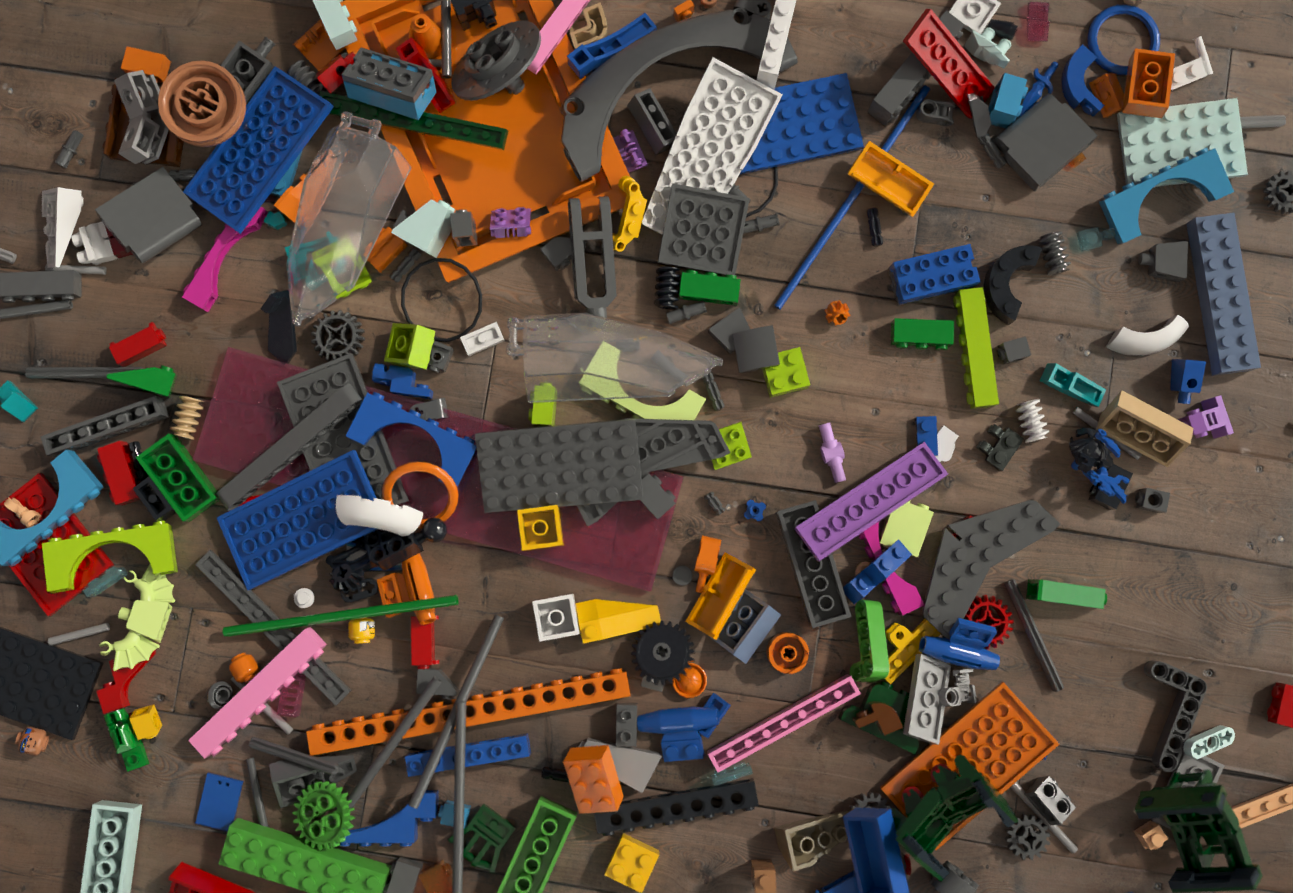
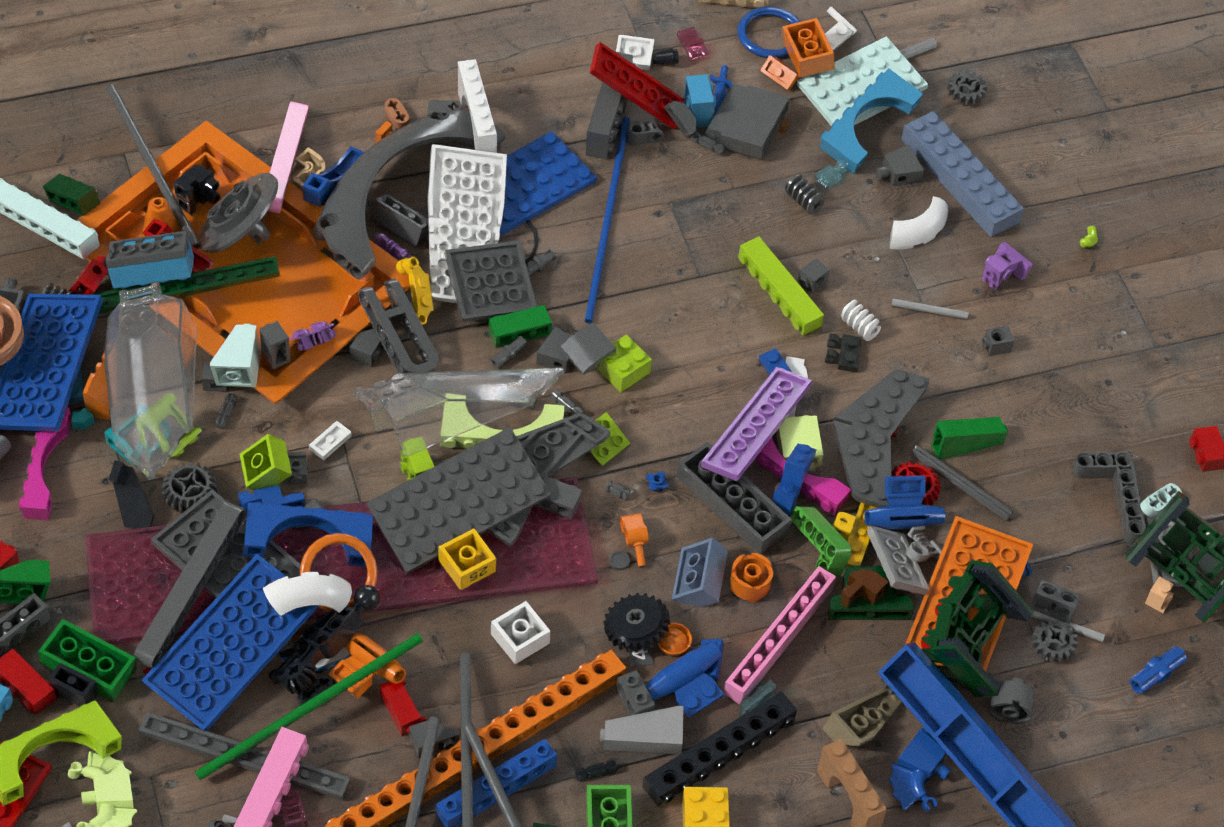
camera: 30 degrees left, 30 degrees down
(99, 585) = (55, 776): clear light blue plate -> none
(135, 448) = (35, 664): black axle -> none
(186, 417) = (71, 604): tan piece -> none
(244, 668) = (230, 801): orange head -> none
(304, 598) = (262, 718): white plate -> none
(317, 46) = (59, 270): orange hinge -> none
(361, 630) = (335, 719): yellow head -> none
(385, 249) = (205, 400): orange brick -> none
(467, 271) = (276, 383): black piece -> none
(593, 779) = (630, 745): orange brick -> none
(608, 619) = (576, 619): yellow wedge -> none
(665, 288) = (481, 338): black piece -> none
(720, 595) = (664, 557): light orange container -> none
(832, 452) = (701, 409): lavender pin -> none
(837, 312) = (644, 302): orange gear -> none
(875, 227) = (640, 231): black axle -> none
(890, 178) = (633, 187): light orange container -> none
(922, 333) = (726, 291): green brick -> none
(933, 274) = (710, 244): blue piece -> none
(986, 50) = (663, 73): light aqua connector -> none
(996, 282) = (772, 212): black brick -> none
(1072, 384) = (878, 282): teal slope -> none
(1074, 85) = (749, 74): blue arch -> none
(1096, 453) = (923, 319): helmet -> none
(1101, 498) = (956, 344): black brick -> none
(1145, 428) = (957, 286): tan brick -> none
(1186, 378) = (969, 239): blue torso -> none

